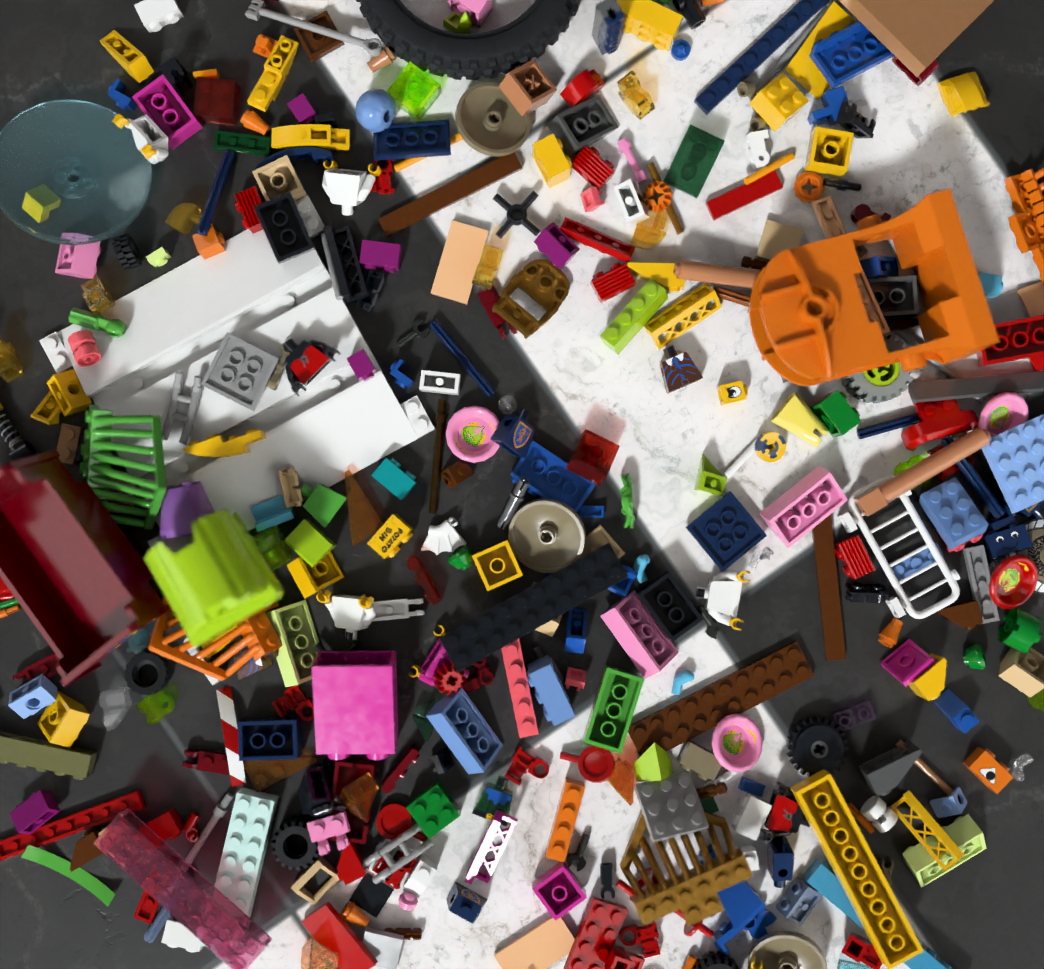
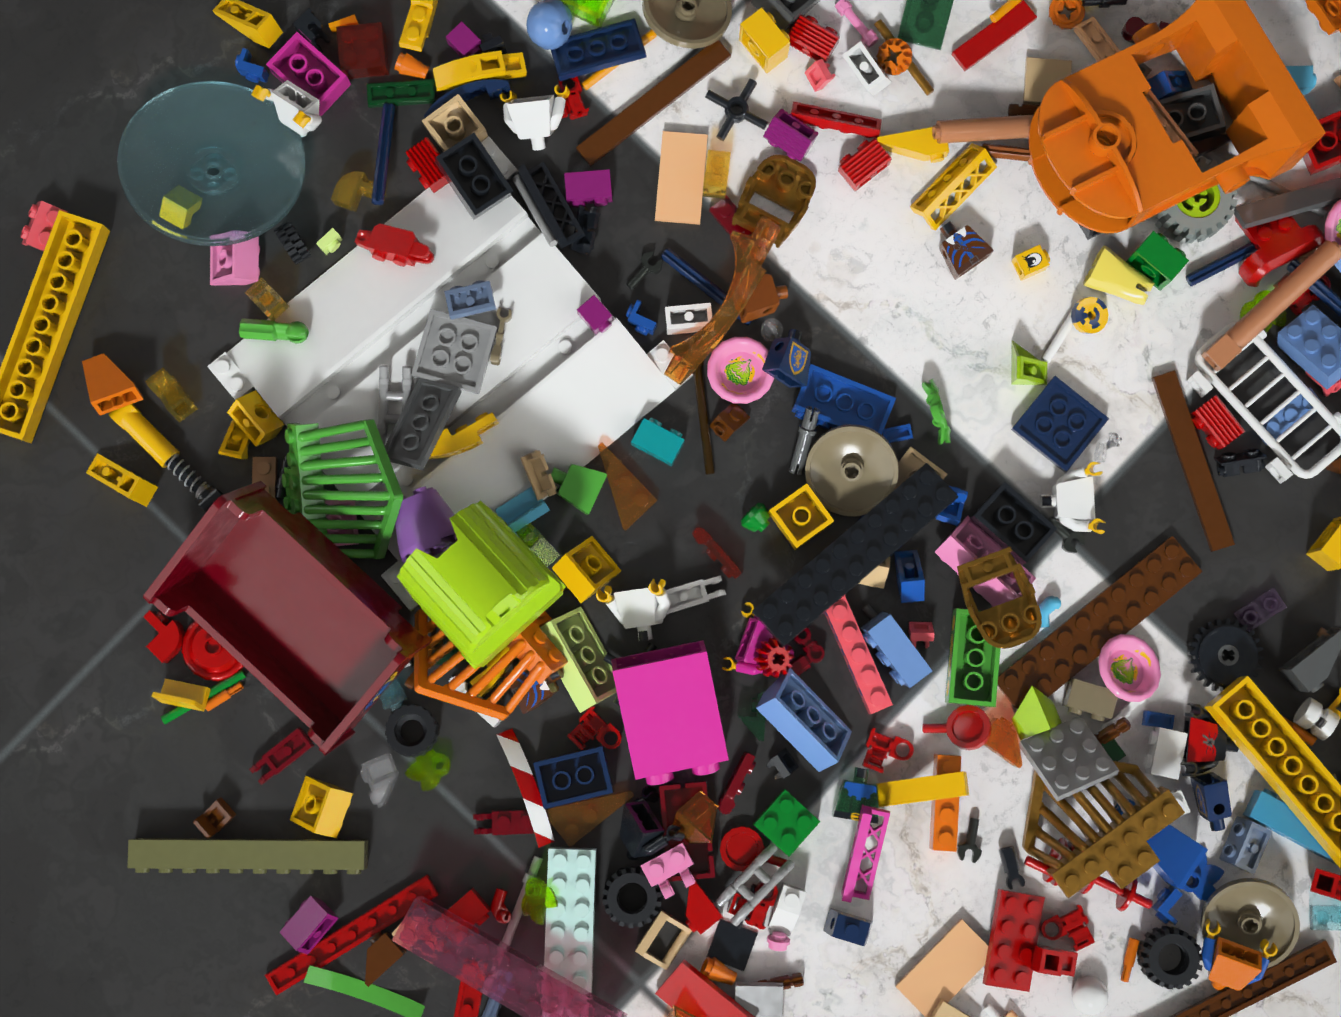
camera: 10 degrees left, 5 degrees down
(32, 696) = (268, 788): light blue brick -> none
(84, 348) = (265, 362): coral wheel -> none
(199, 427) = (421, 423): none -> dark grey plate
(210, 271) = (394, 245): none -> red hinge
(211, 244) = (388, 213): orange brick -> none
(220, 831) = (537, 899): none -> clear neon green plate
(260, 331) = (470, 299): none -> sand blue bracket
(306, 361) = (530, 322): torso -> none
(309, 542) = (574, 534): lime slope -> none
(390, 536) = (668, 508): yellow brick -> none
(443, 537) = (729, 499): white arm -> none
(499, 342) = (749, 257): none -> clear orange slope
(500, 374) = (764, 299): none -> dark orange torso
(548, 807) = (922, 789): none -> yellow tile
(559, 890) = (957, 888): dark pink brick -> none
(592, 457) = (885, 368): clear red brick -> none
(634, 316) = (898, 197): lime brick -> none
(640, 565) = (968, 484): medium azure arm -> none
(646, 689) = (1011, 621): none -> pearl gold slope
(649, 237) = (895, 104): clear yellow brick -> none
(804, 506) = (1144, 375): bright pink slope -> none
(890, 633) = (1280, 504): orange cone -> none
(907, 662) = (1308, 531): dark pink tile -> none

